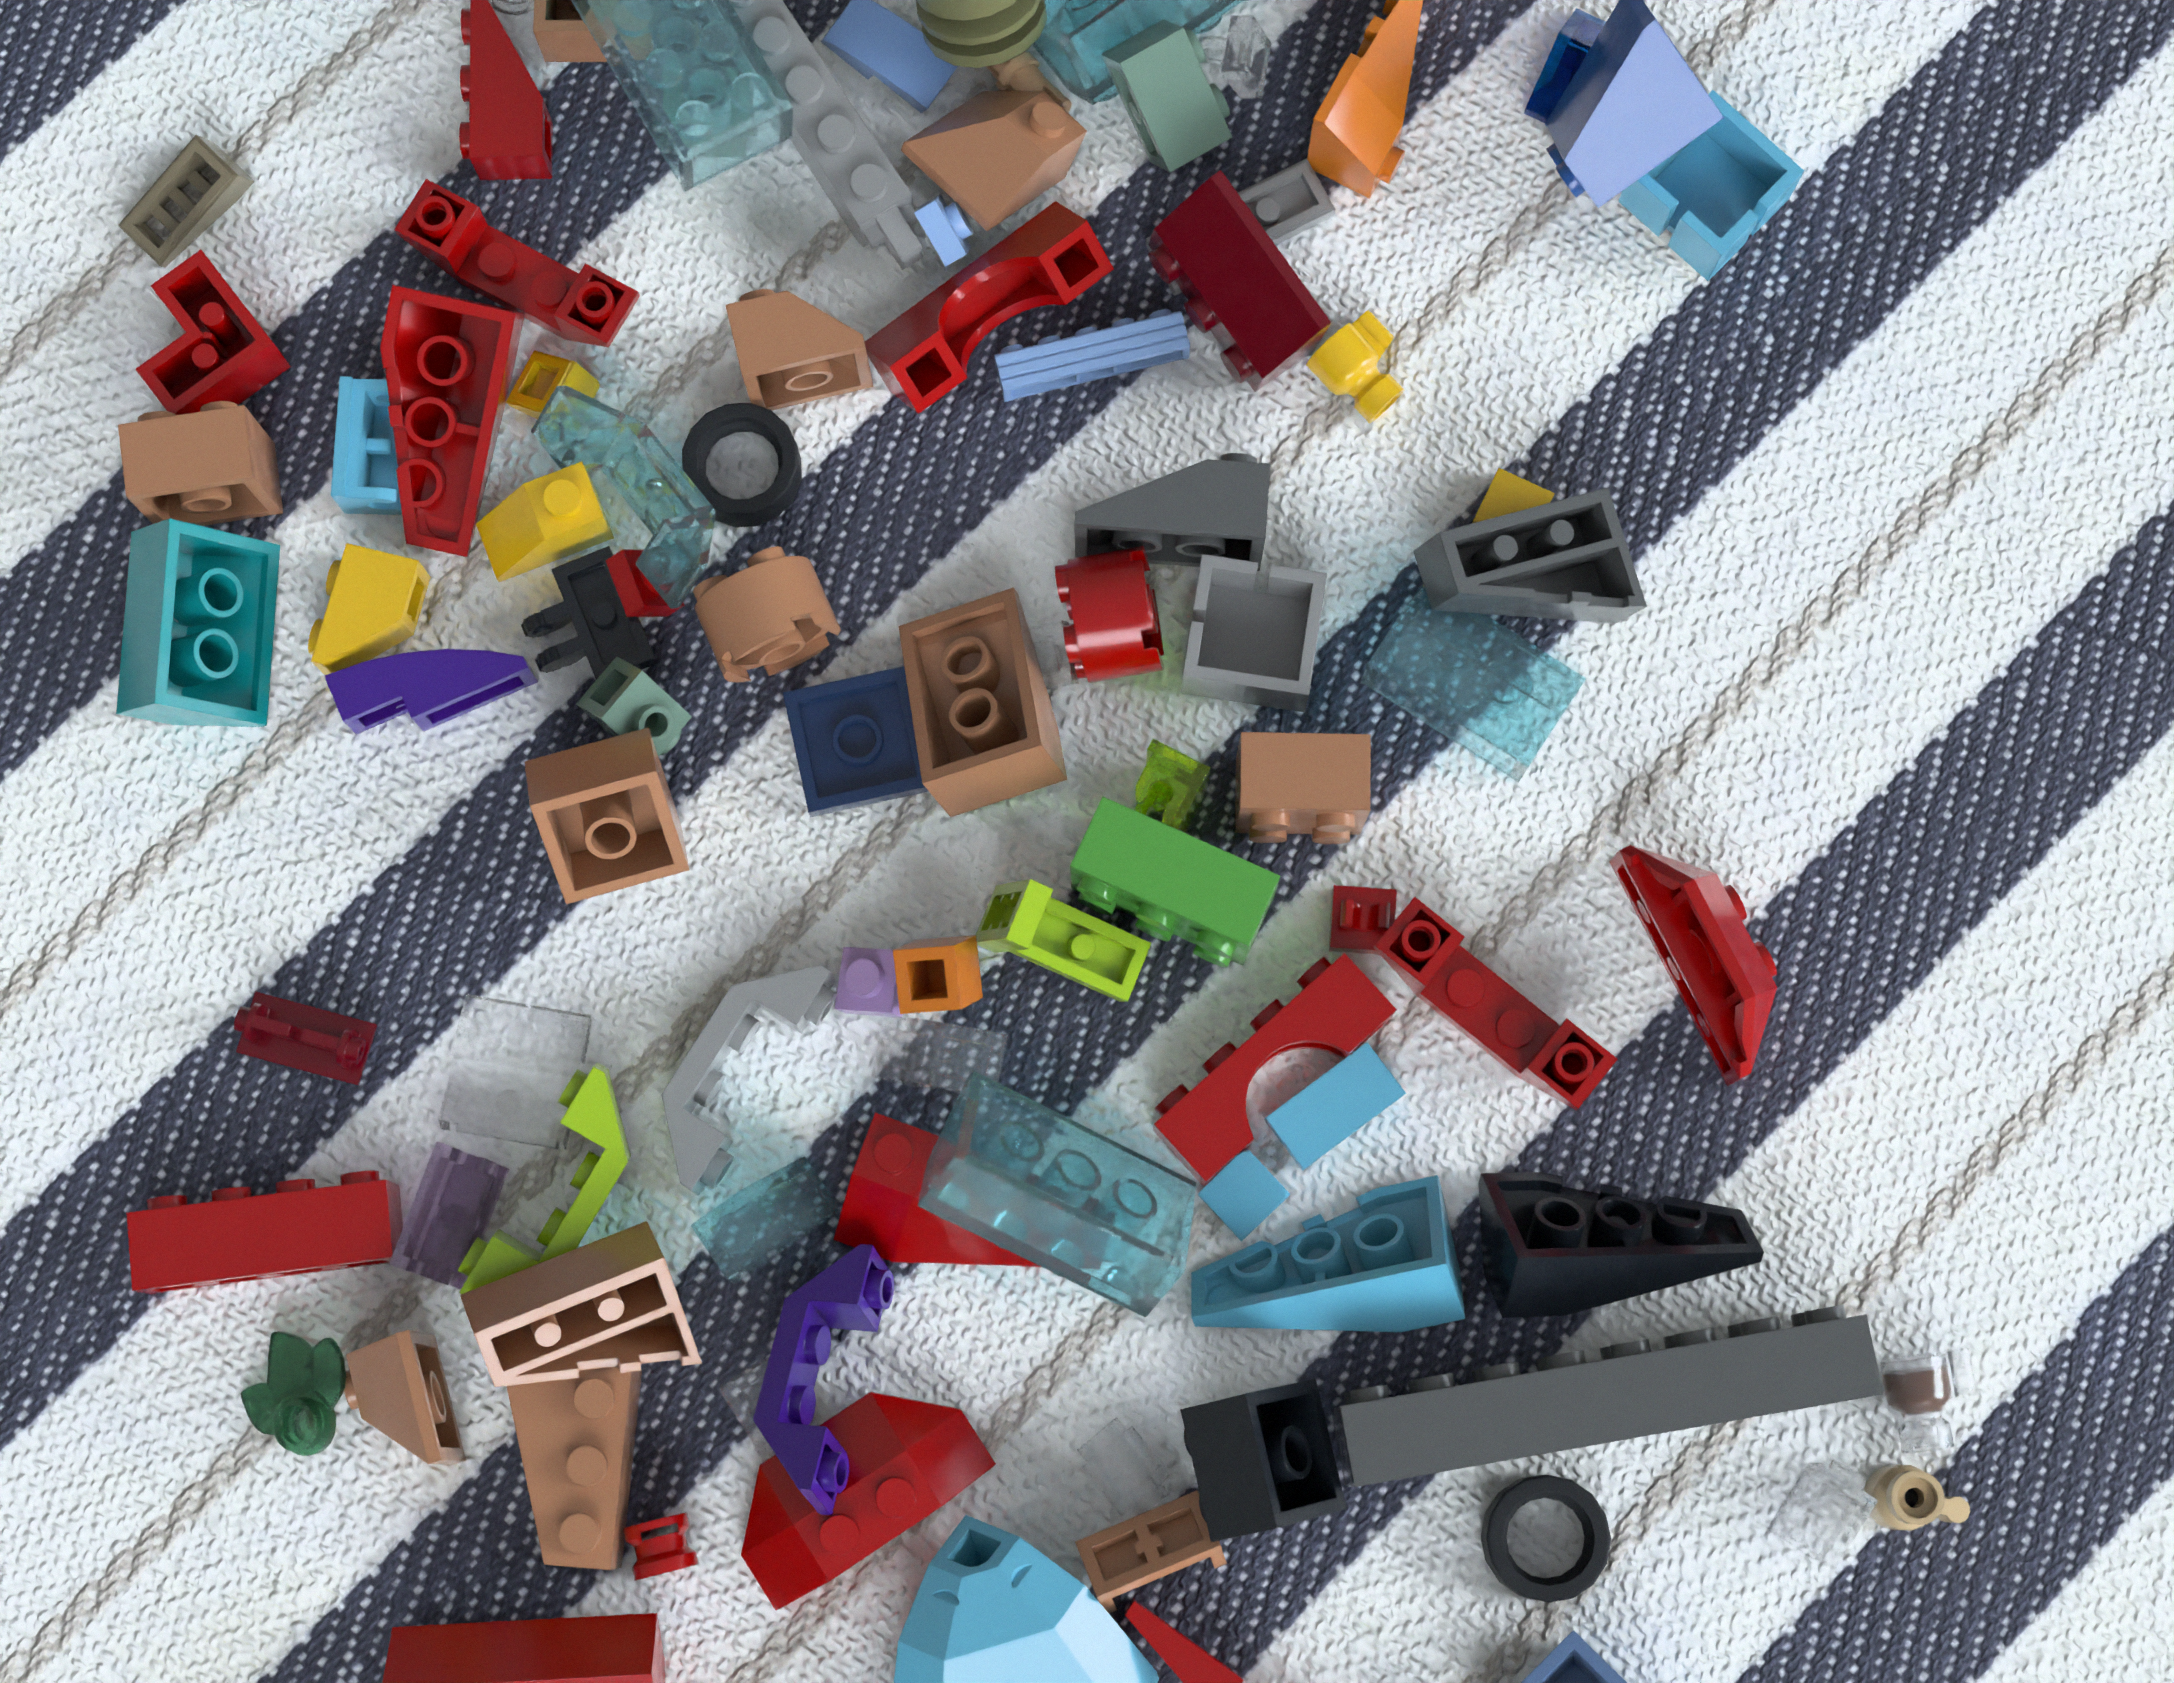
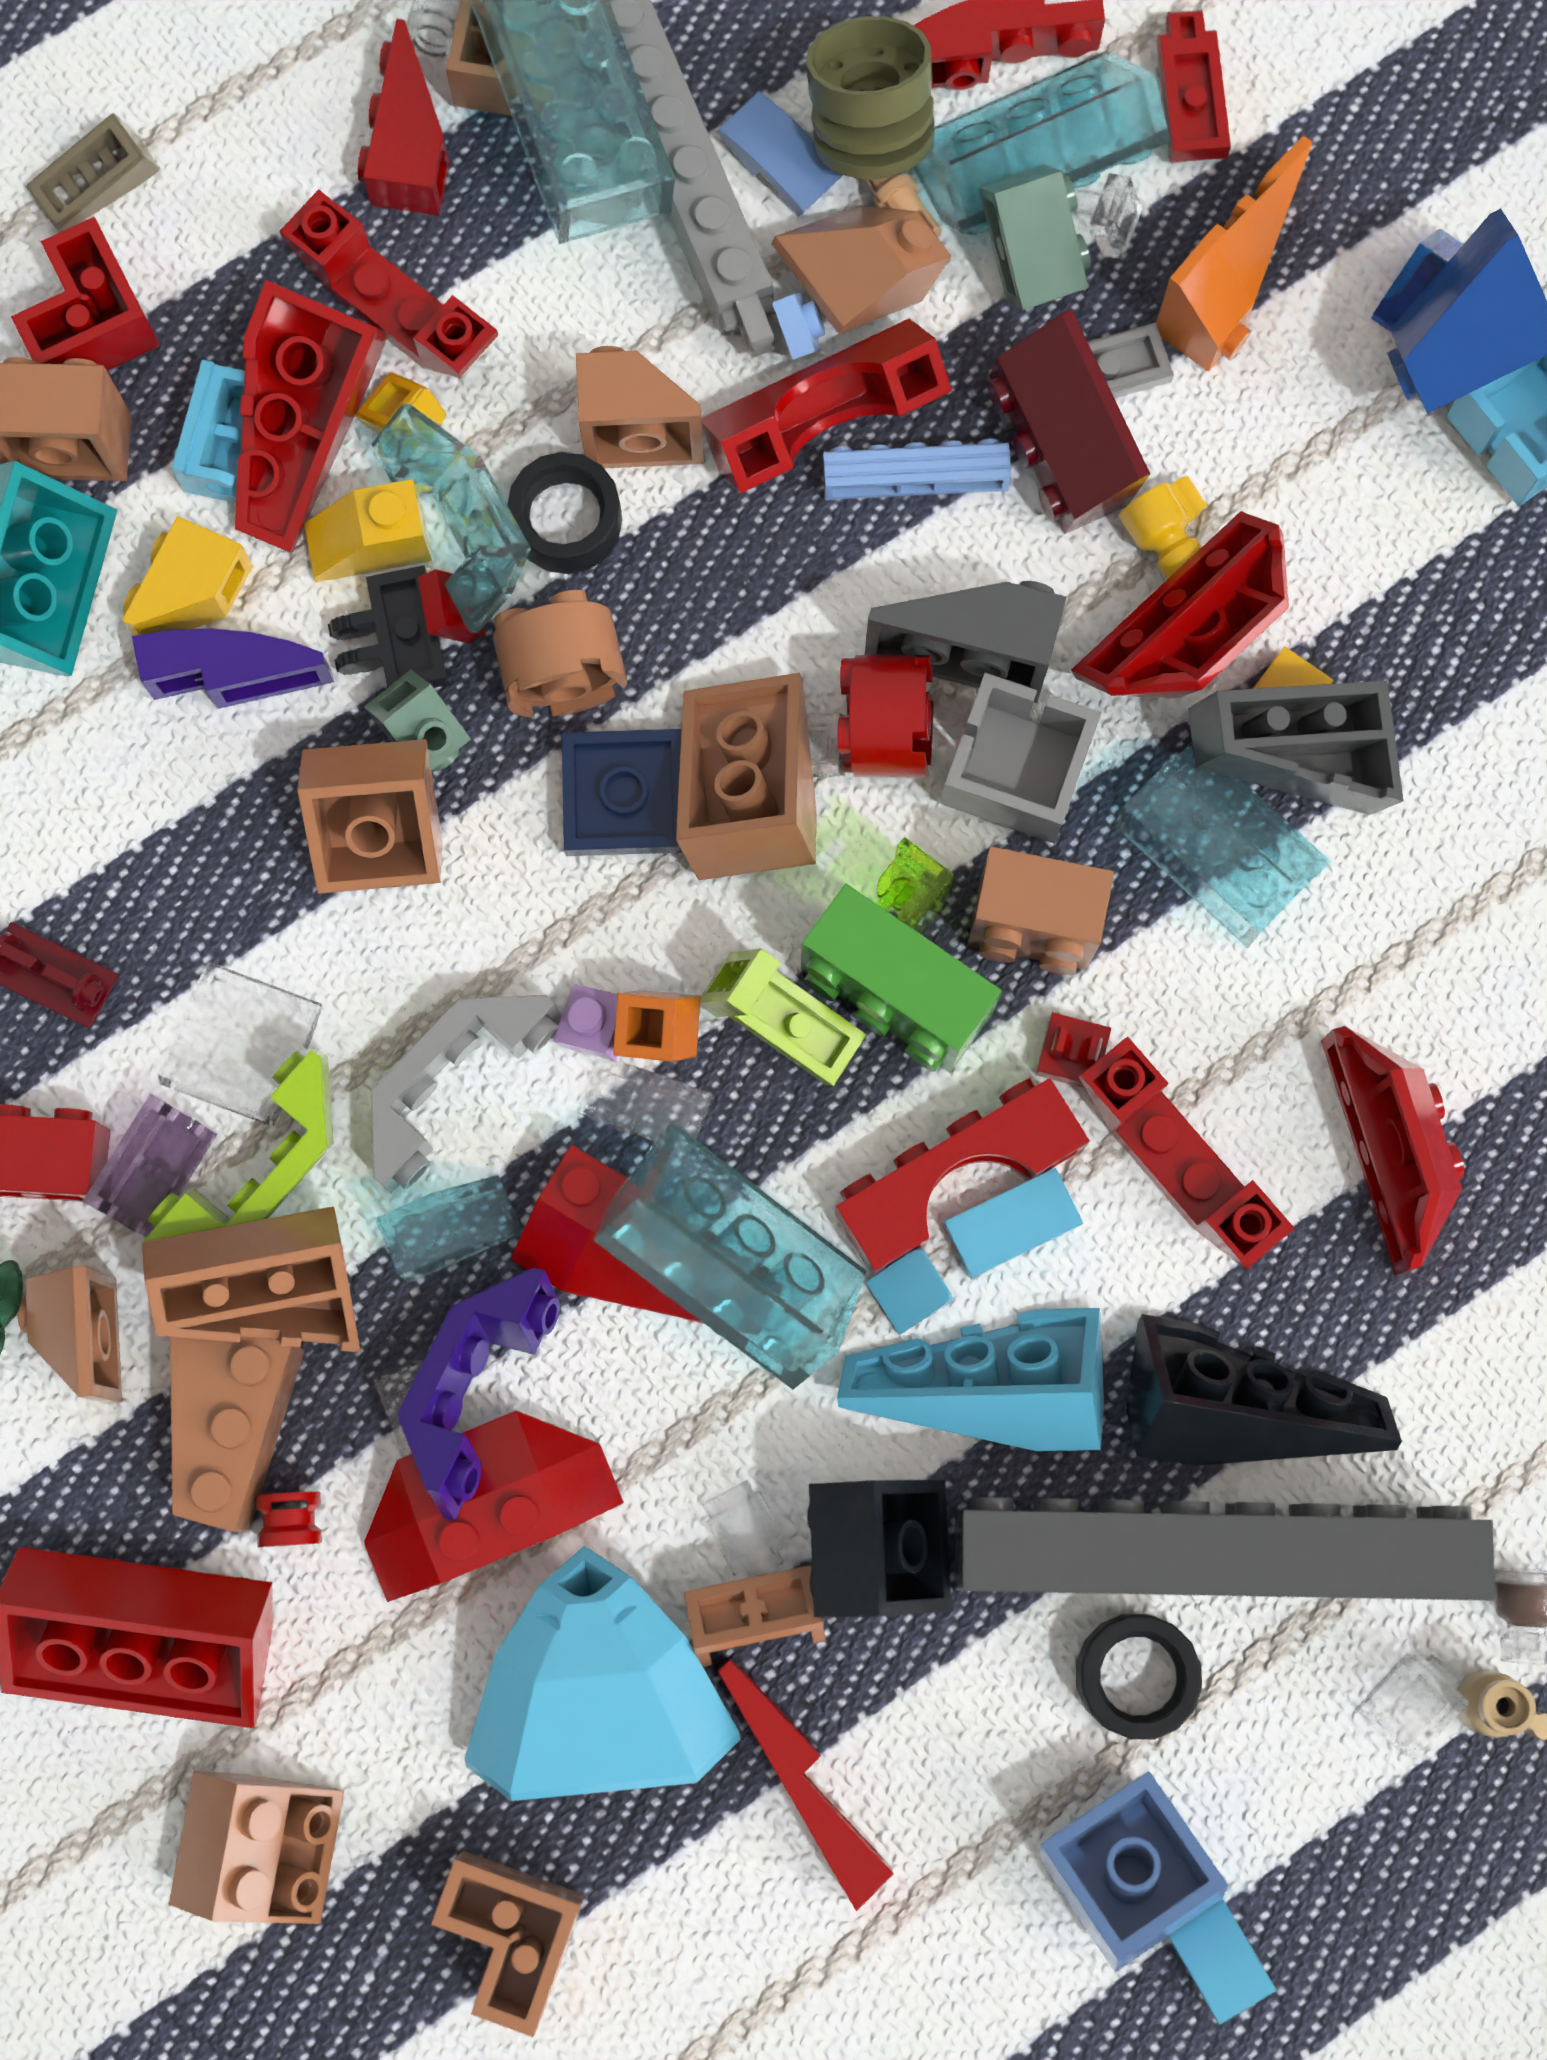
camera: 10 degrees right, 0 degrees up
(1404, 457) = (1196, 616): none -> red wedge

